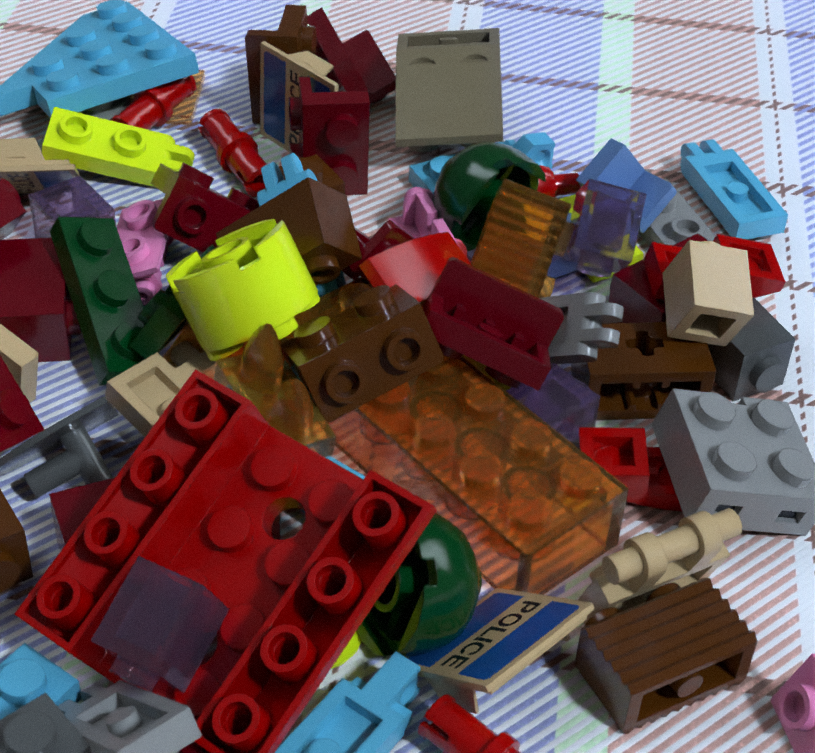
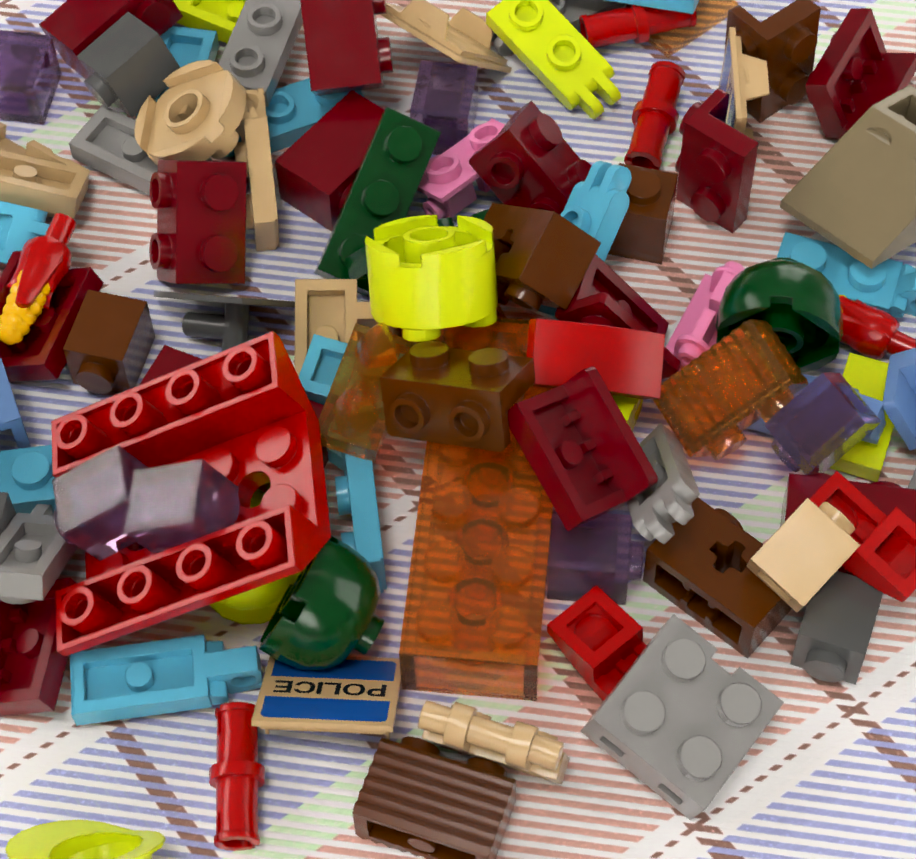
camera: 50 degrees right, 15 degrees up
(251, 560) = (179, 504): none -> brick

